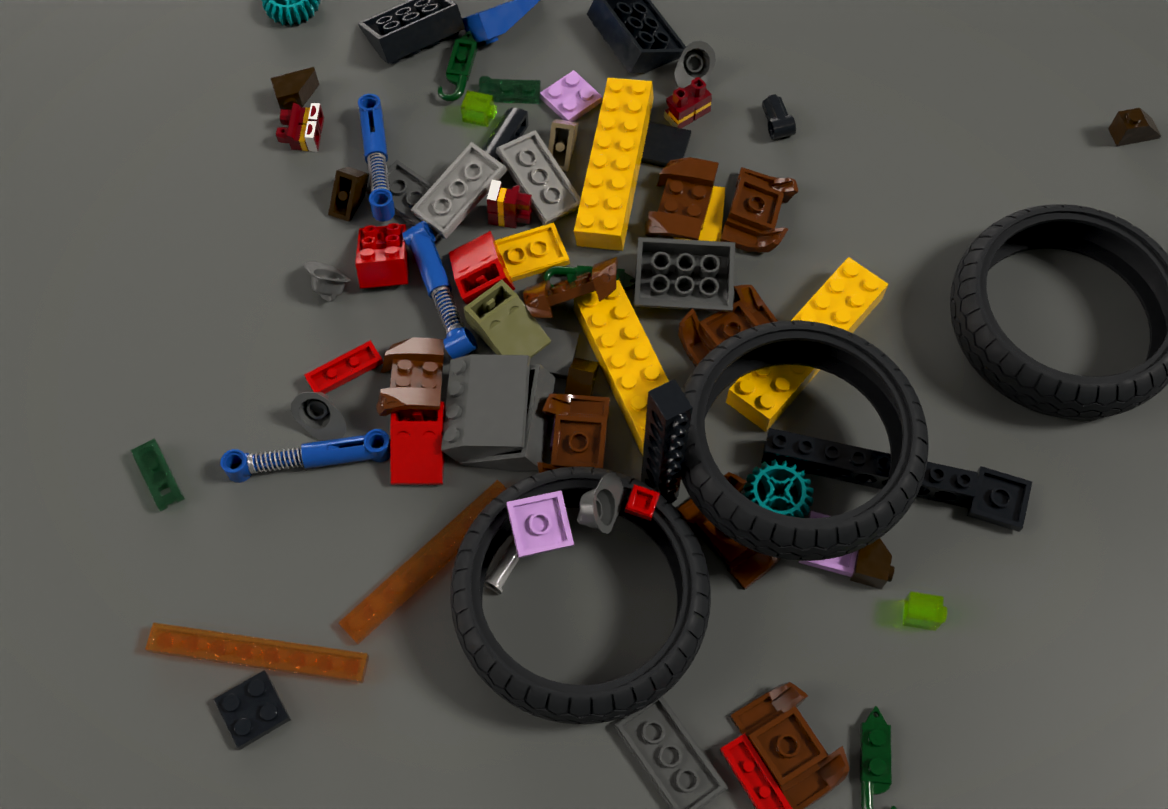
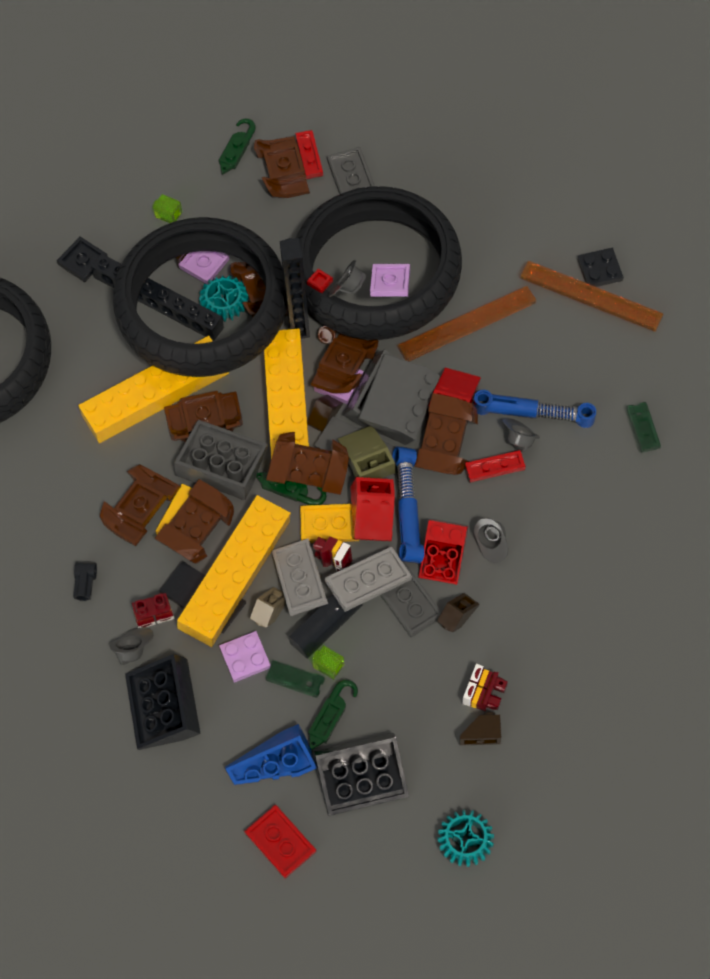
camera: 160 degrees left, 0 degrees up
(376, 157) = (427, 637): blue piece -> none

